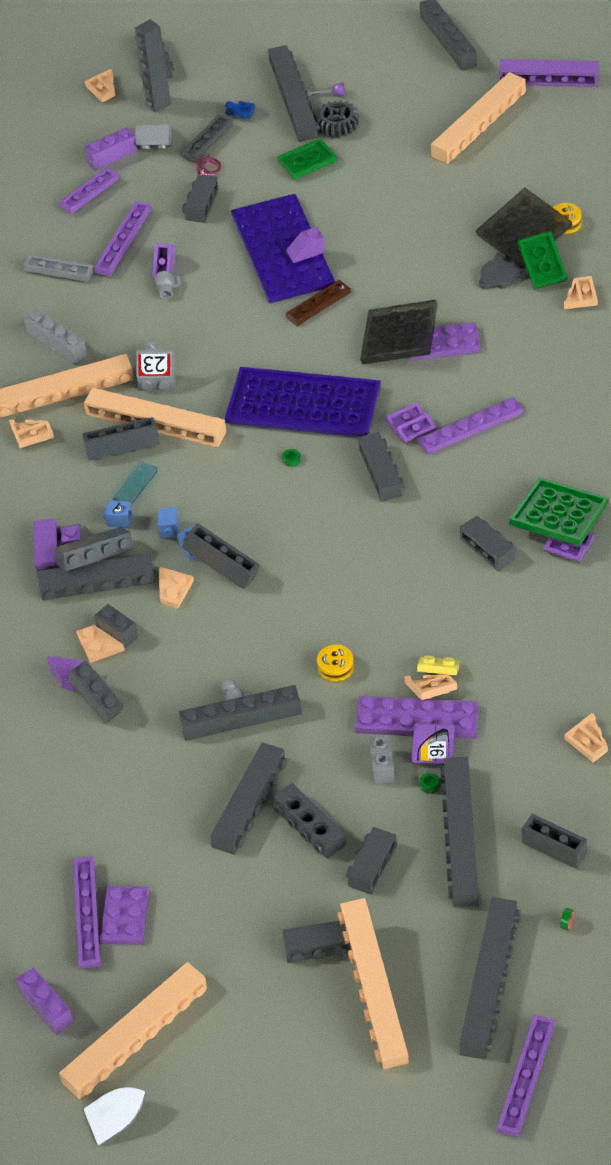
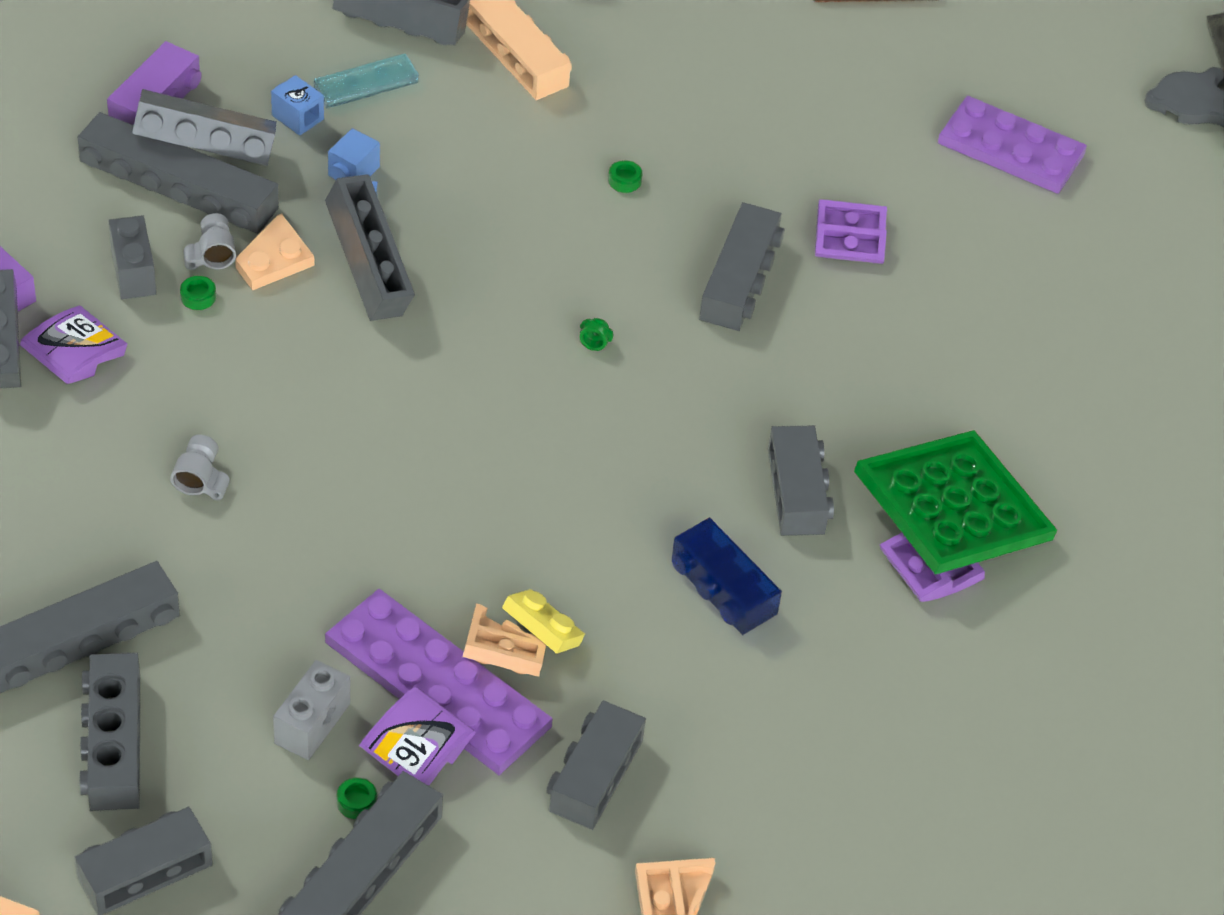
camera: 25 degrees right, 0 degrees up
(71, 533) = (203, 90): medium lavender slope -> none
(98, 643) = (87, 268): light nougat wing -> none
(128, 679) = (73, 344): none -> medium lavender slope
(145, 598) = (215, 246): none -> light grey piece
(156, 624) = (198, 292): none -> green tile
(240, 712) = (178, 496): dark grey brick -> none
(303, 401) = (718, 109): dark purple plate -> none
(335, 663) = (392, 514): yellow head -> none
(345, 534) = (595, 334): none -> green plate
(399, 332) = (951, 90): clear smoke plate -> none
(470, 425) = (941, 290): medium lavender plate -> none
(494, 600) = (725, 576): none -> clear blue brick
(512, 707) = (595, 764): none -> dark grey brick

